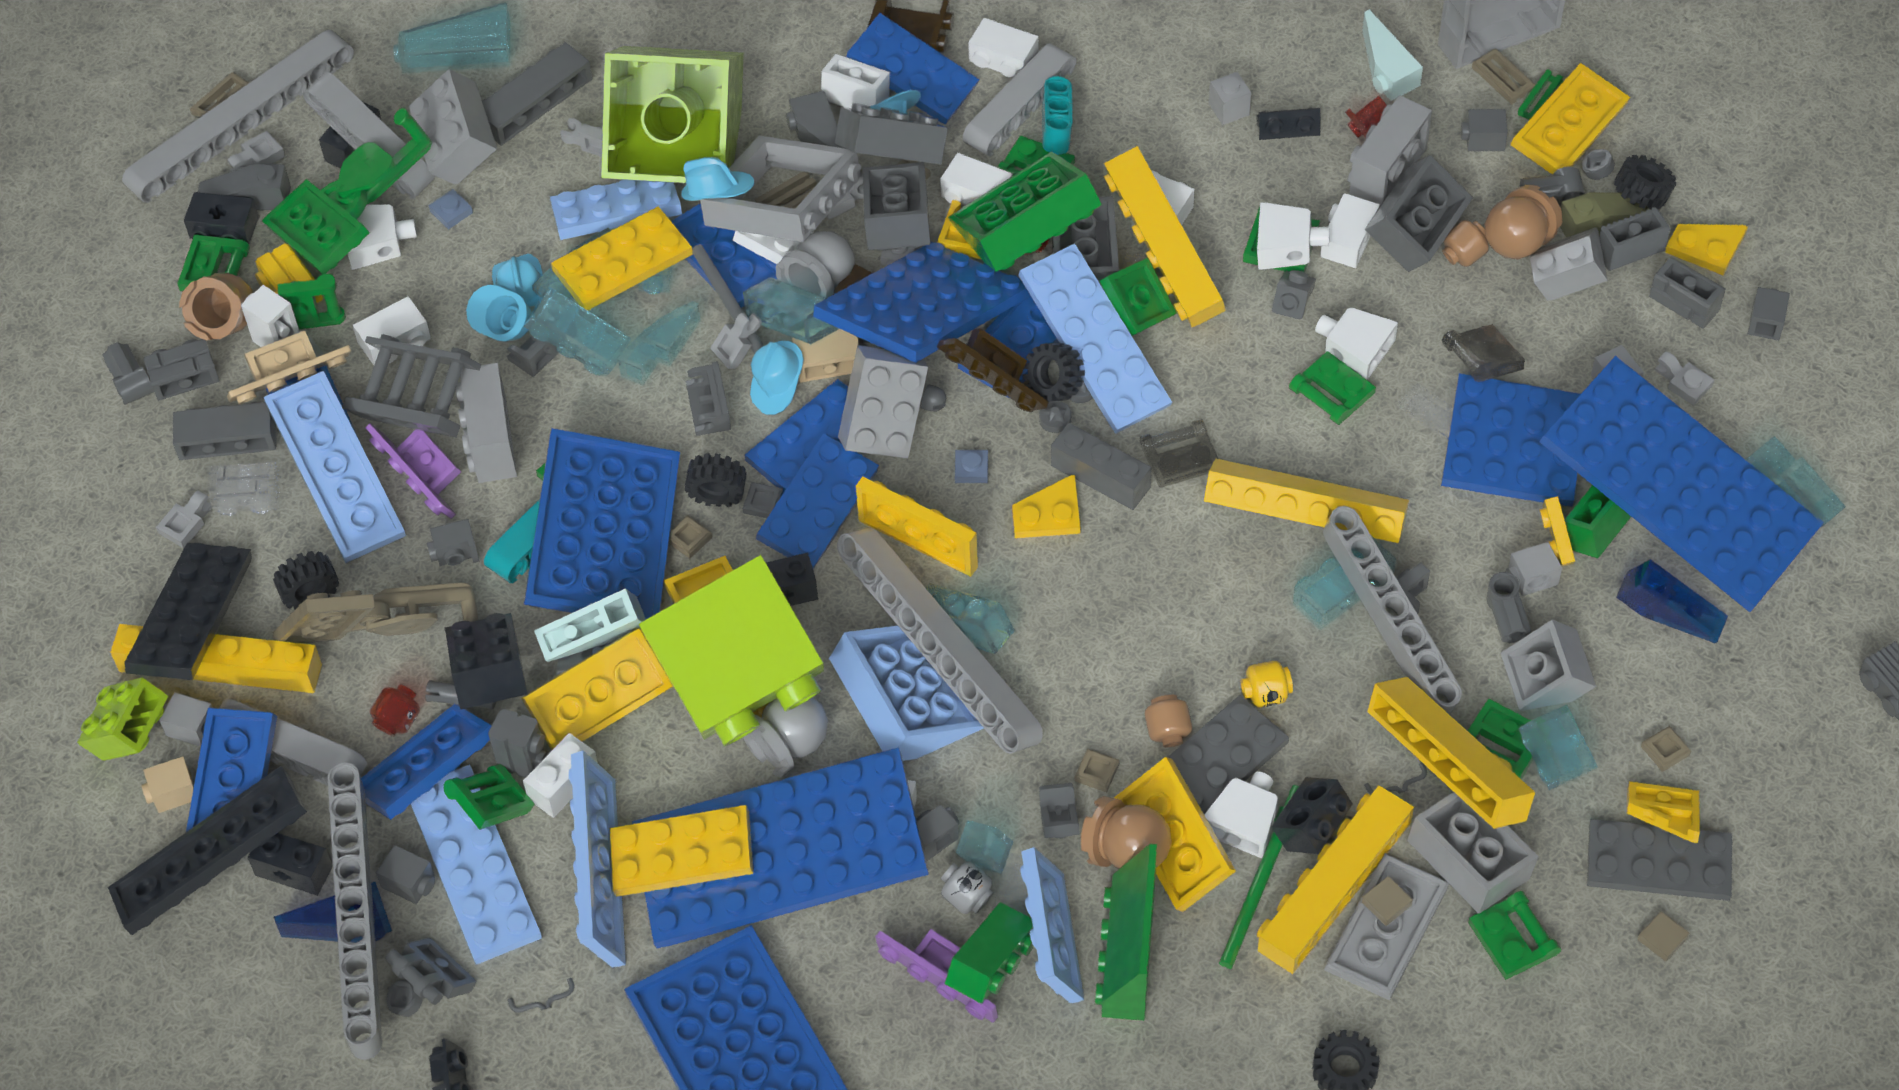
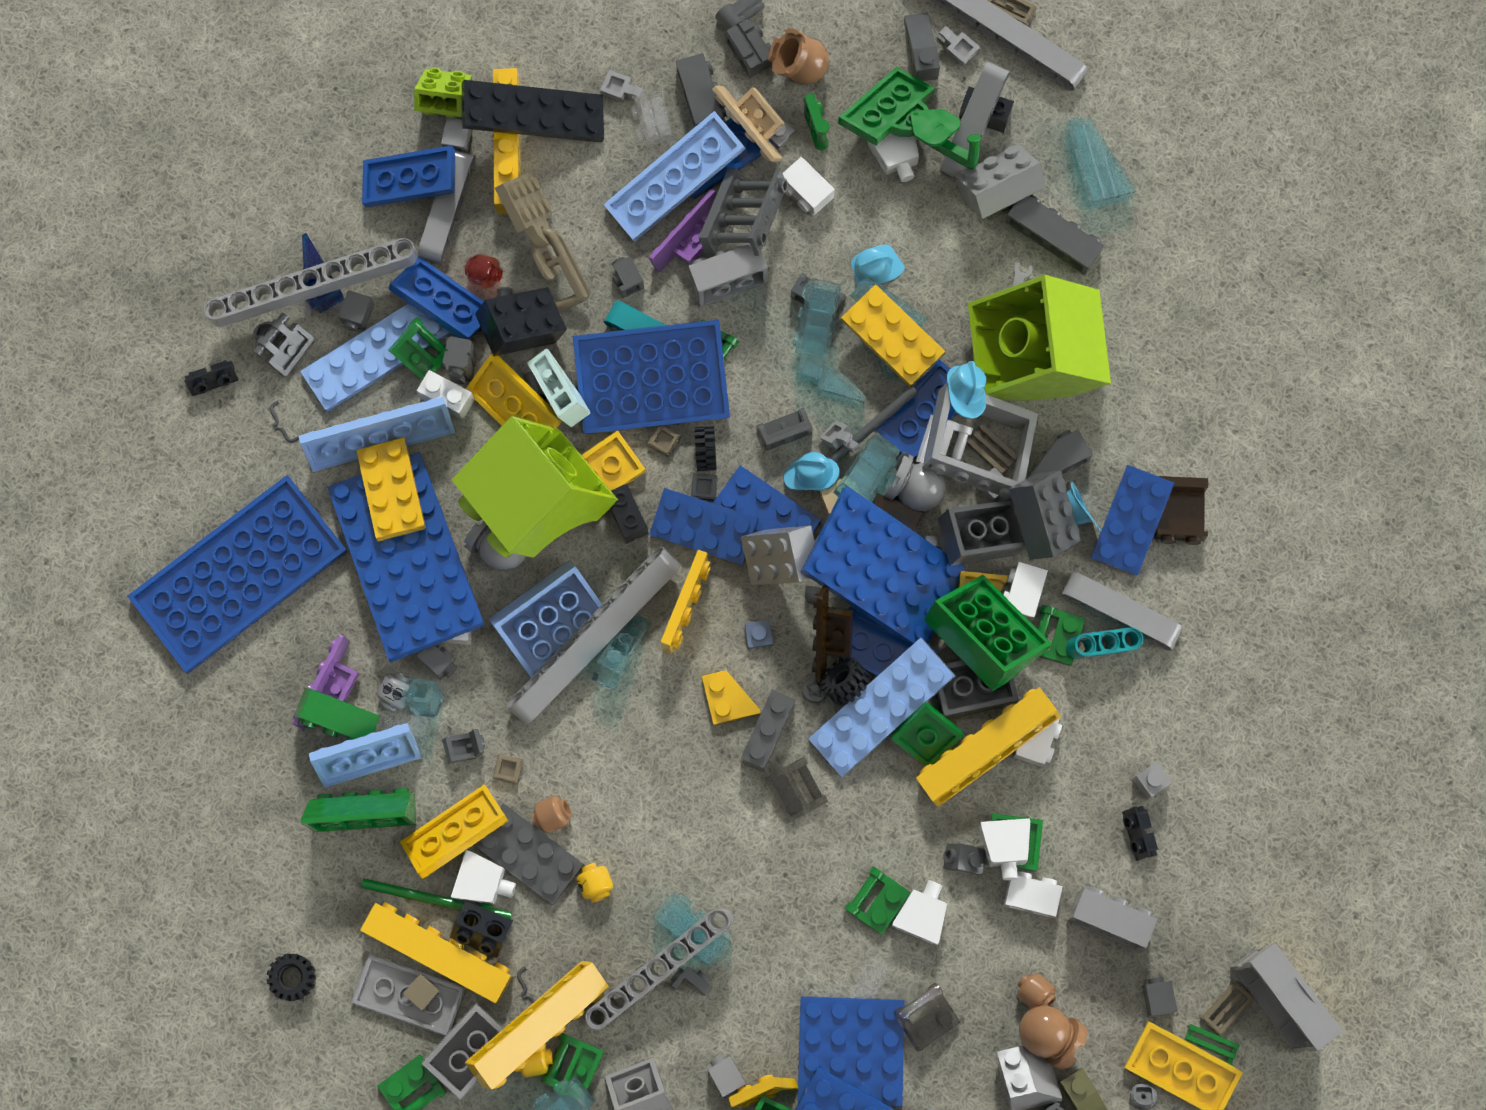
camera: 80 degrees right, 20 degrees up
(168, 785) = (404, 137): tan brick -> none
(206, 256) = (849, 37): green plate -> none
(206, 850) = (347, 176): black plate -> none
(221, 216) = (894, 25): black brick -> none
(268, 317) = (791, 97): white brick -> none
(280, 268) = (843, 95): yellow brick -> none
(292, 863) = (354, 230): black brick -> none
(305, 577) = (575, 183): black tyre -> none
(450, 209) = (934, 200): sand blue plate -> none
(498, 313) = (832, 259): medium azure piece -> none
(611, 205) = (946, 307): light blue plate -> none
(854, 82) = (1104, 478): white brick -> none
(1002, 47) = (1170, 589): white brick -> none
(1122, 831) = (438, 798): medium nougat tile -> none
(1302, 498) = (758, 892): yellow brick -> none
(1366, 117) = (1153, 899): clear red bracket -> none
(1391, 65) = (1215, 910): light aqua slope -> none
(1419, 213) = (1051, 950): dark grey brick -> none
(1507, 608) = (684, 1060): dark grey piece -> none
(1562, 185) = (1108, 1061): dark grey piece -> none

